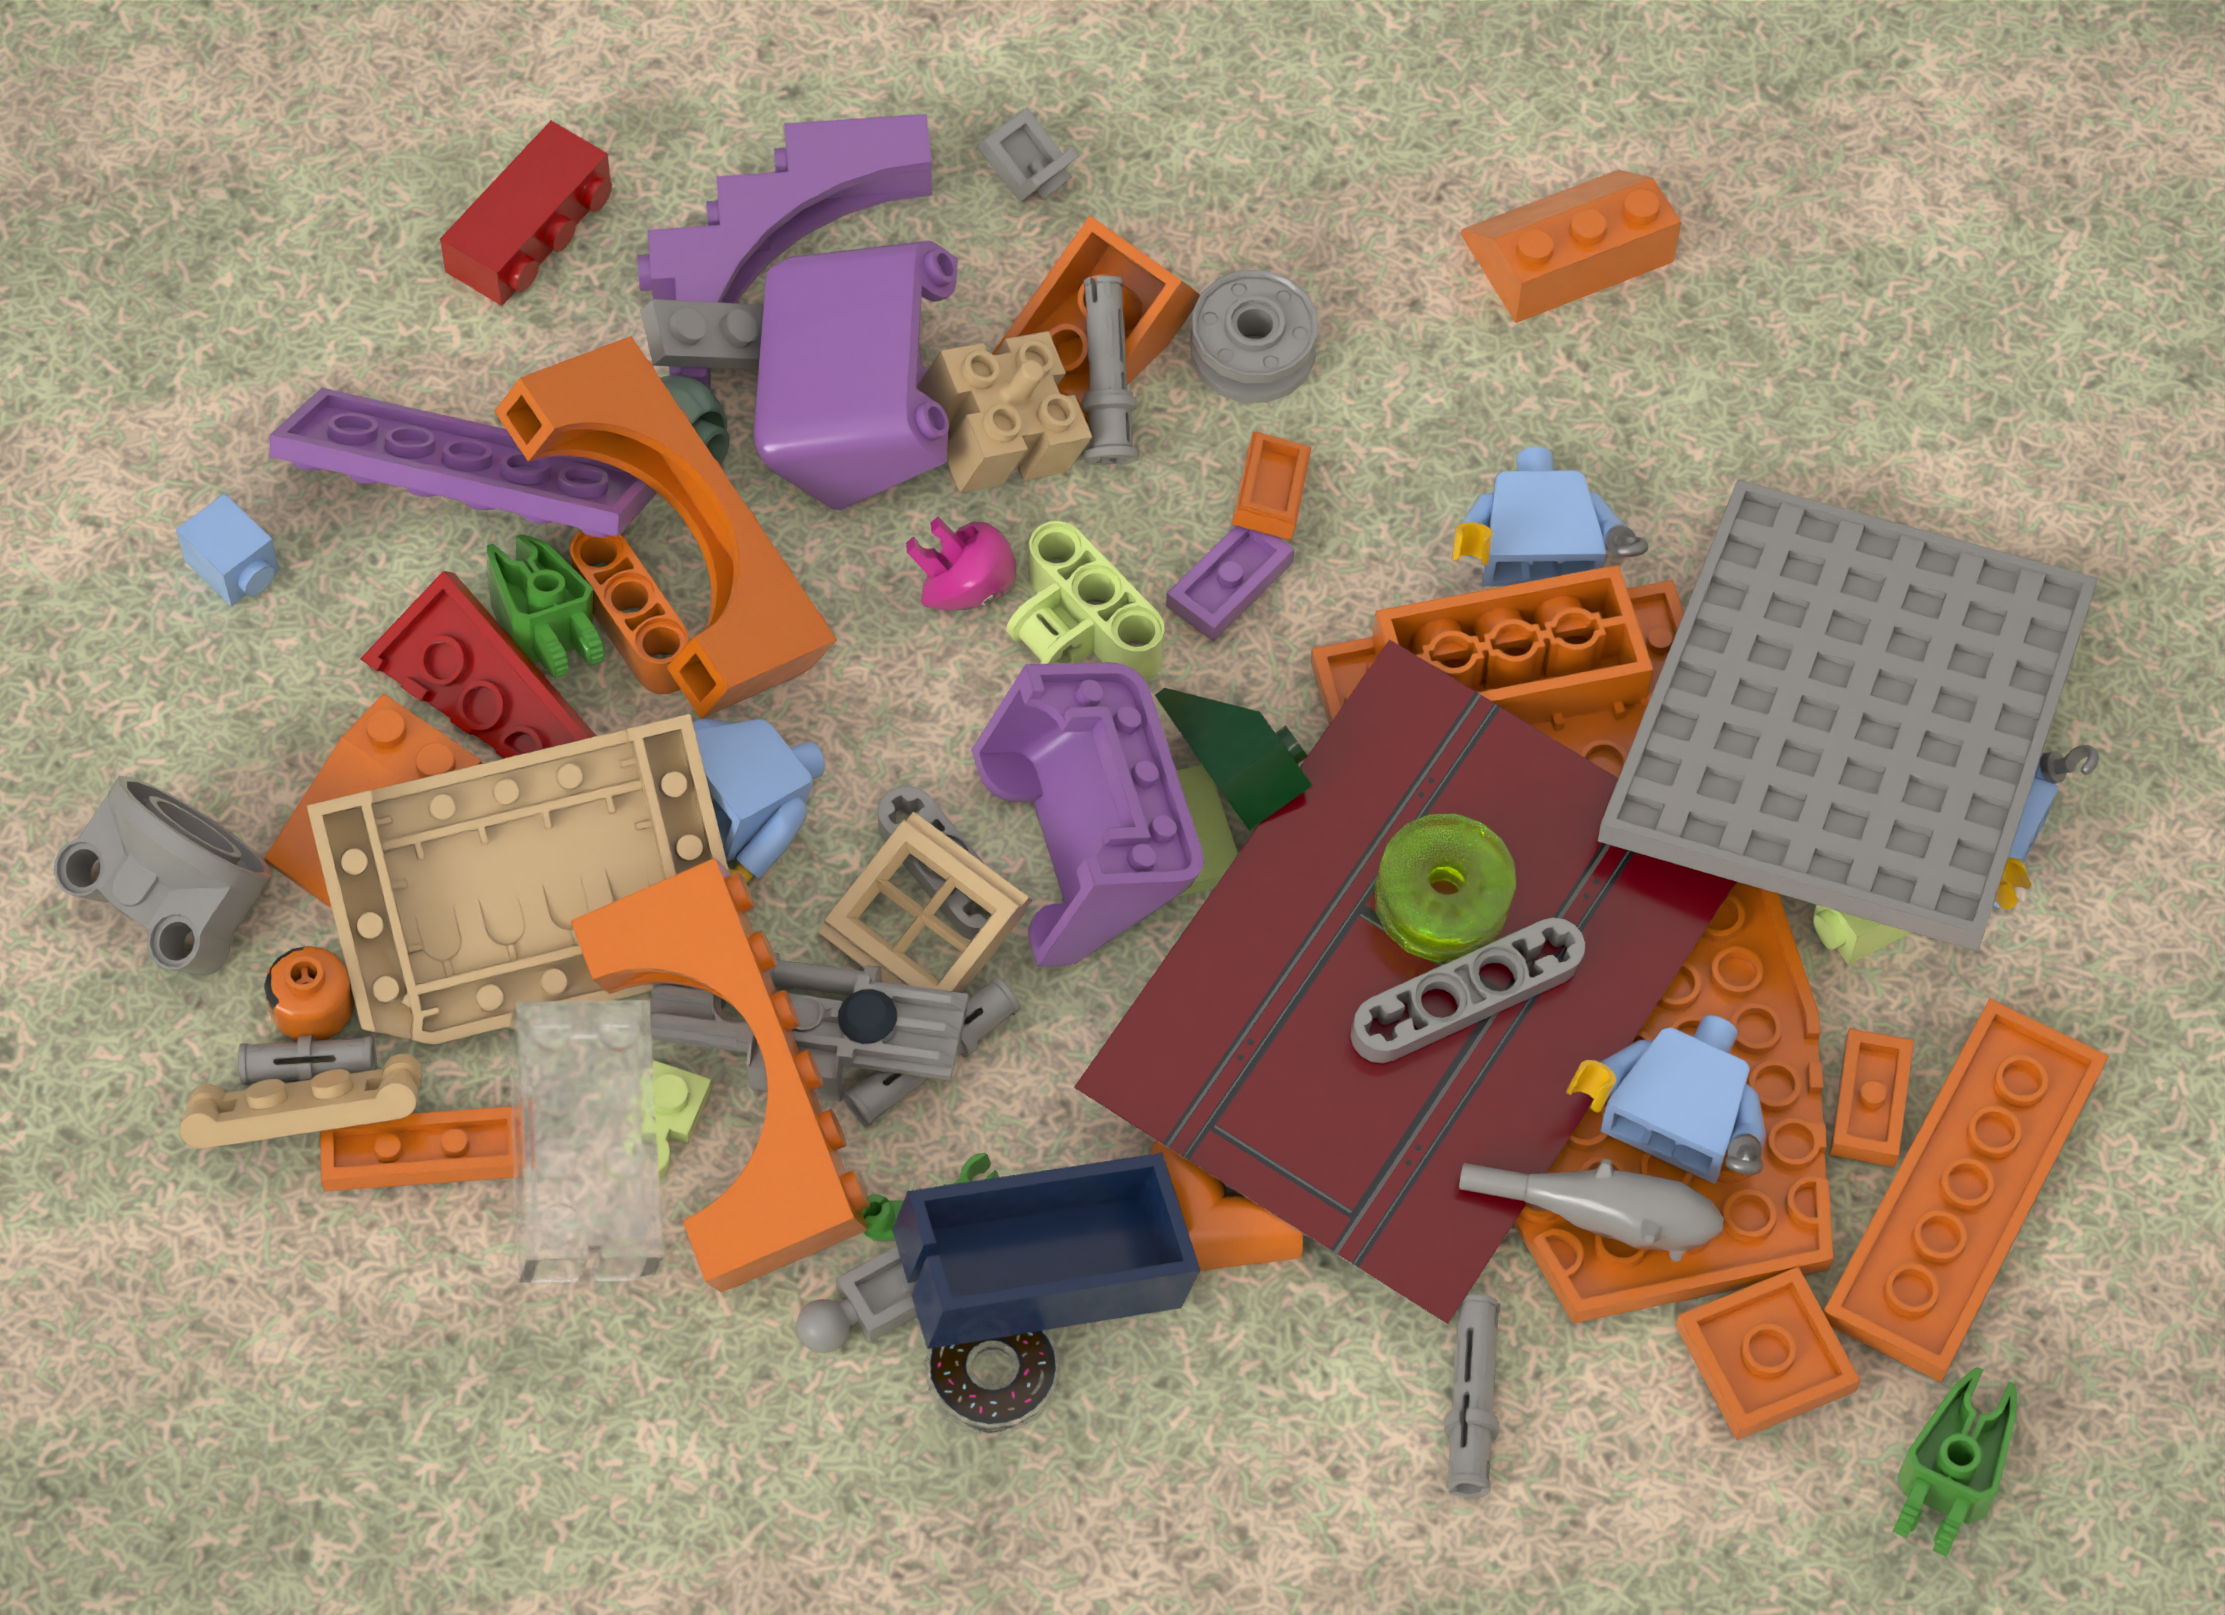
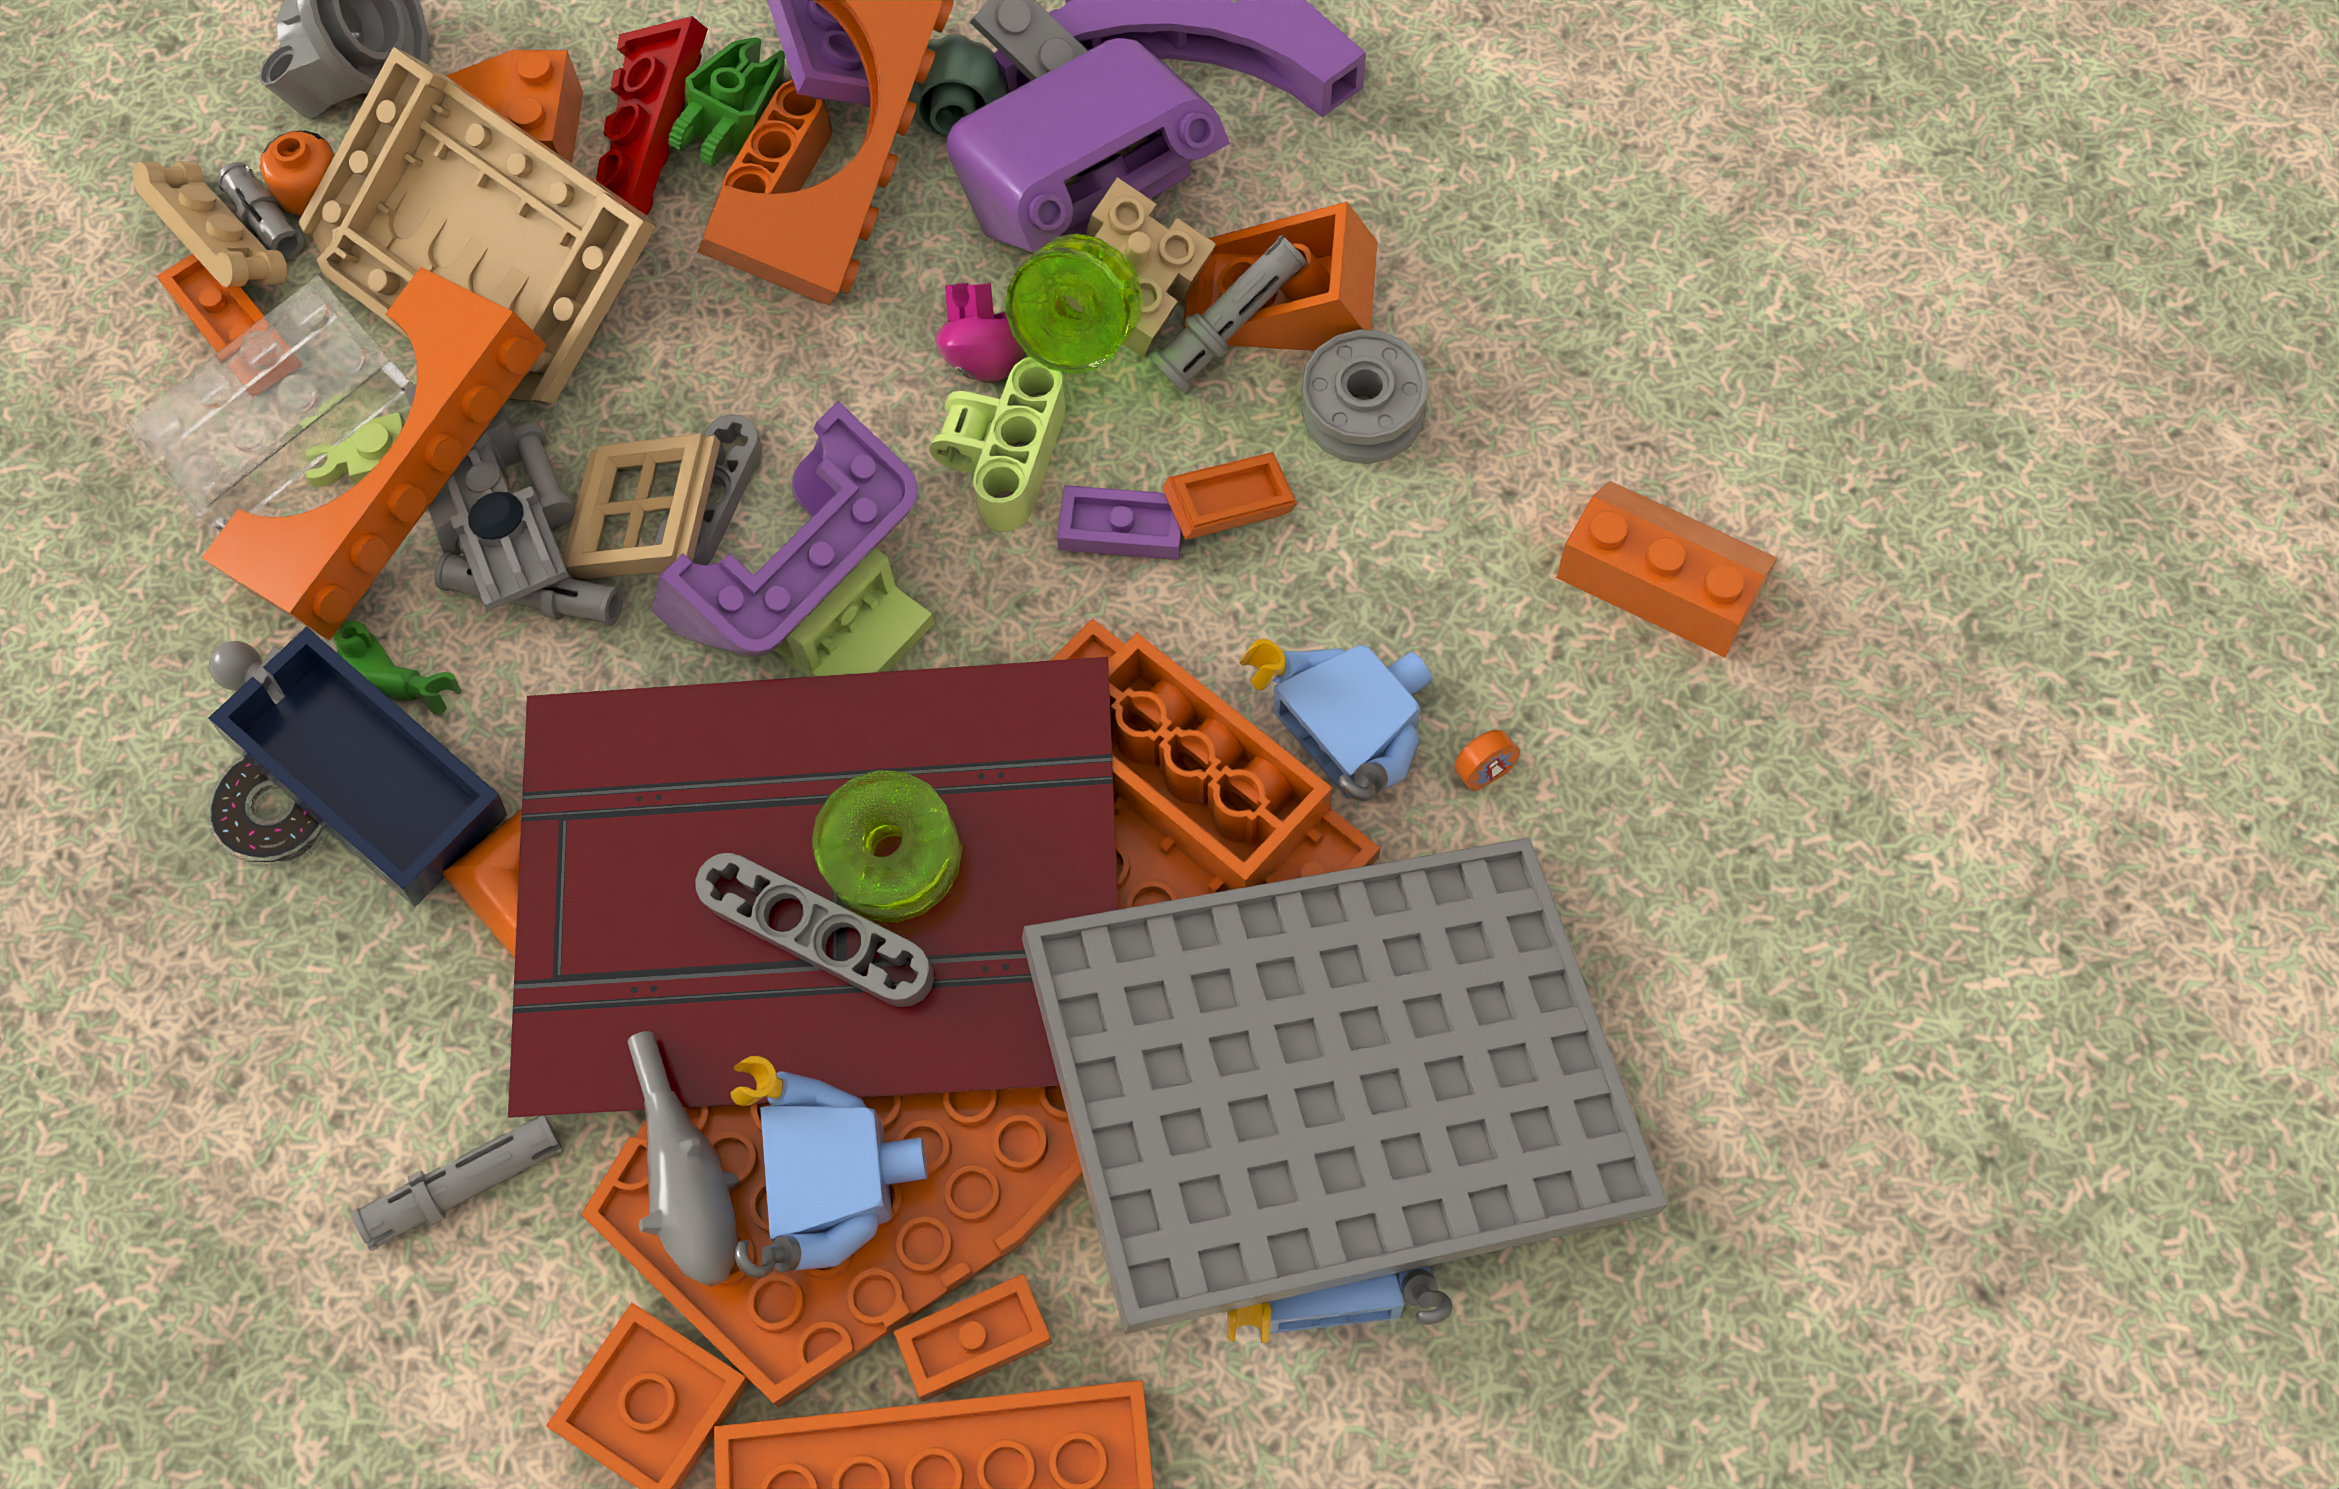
camera: 60 degrees right, 5 degrees up
(756, 789) = (661, 322): light blue torso -> none
(1007, 442) = (1094, 277): none -> clear neon green wheel
(1027, 157) = (1400, 146): light grey bracket -> none
(1240, 752) = (911, 617): dark green slope -> none
(1647, 465) = (1486, 759): none -> orange tile

